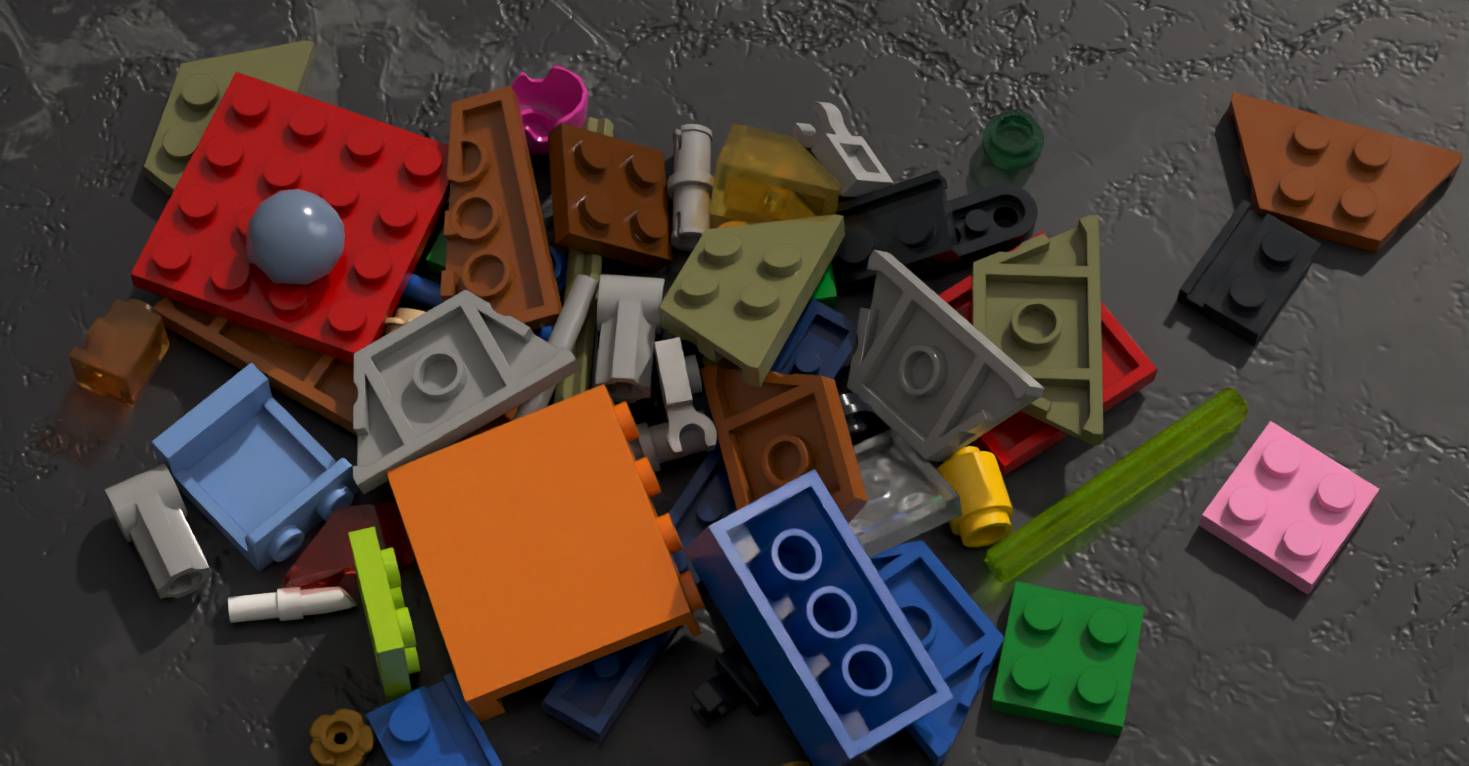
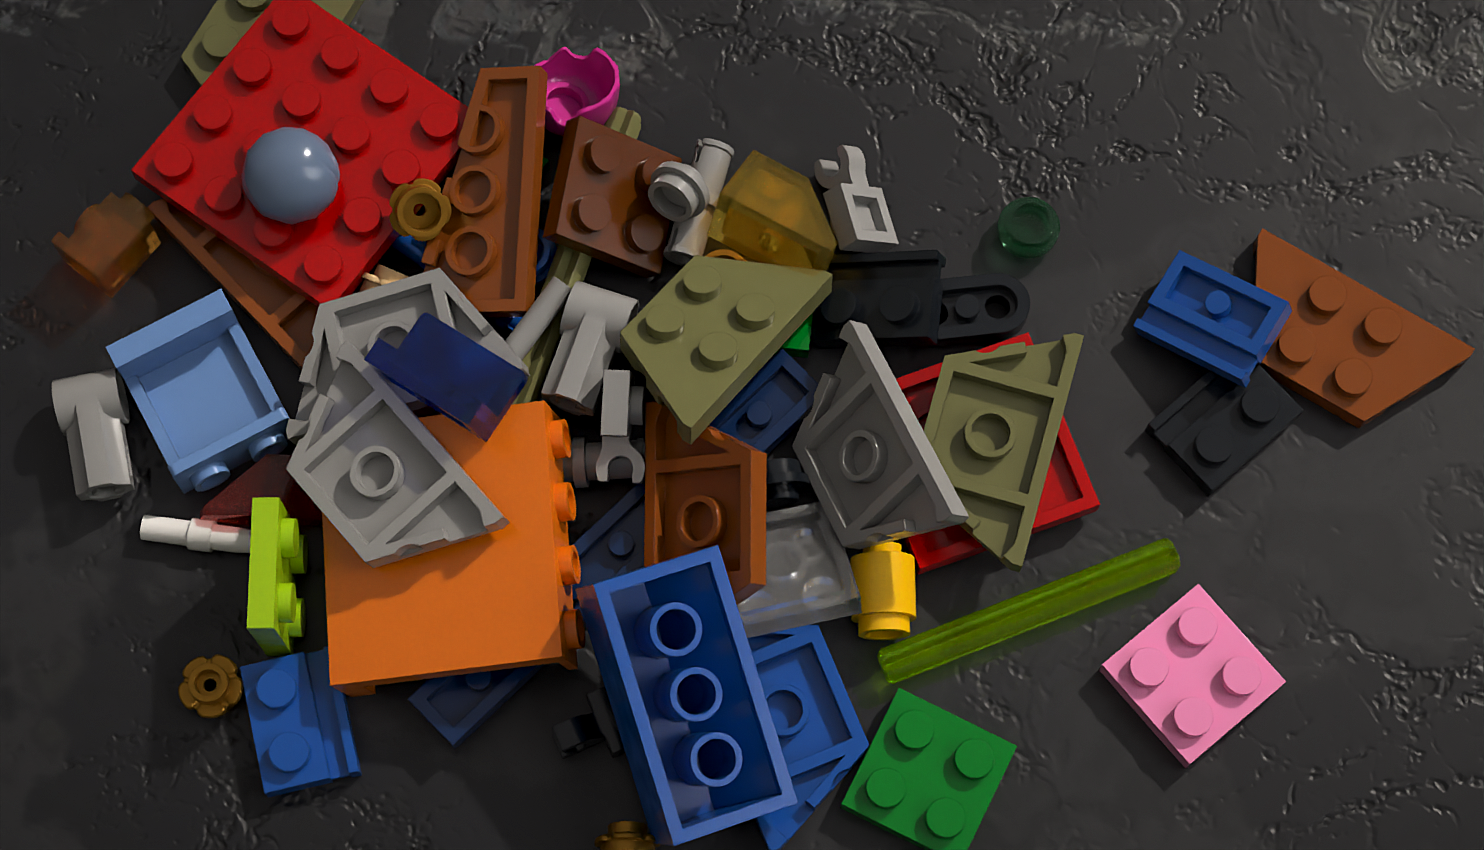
camera: 15 degrees right, 10 degrees up
(444, 241) = (431, 221): none -> pearl gold plate
(468, 485) = (384, 472): none -> light grey wing
(506, 382) = (450, 375): none -> clear blue panel
(674, 173) = (678, 191): none -> light grey plate
(1212, 179) = (1213, 318): none -> blue plate

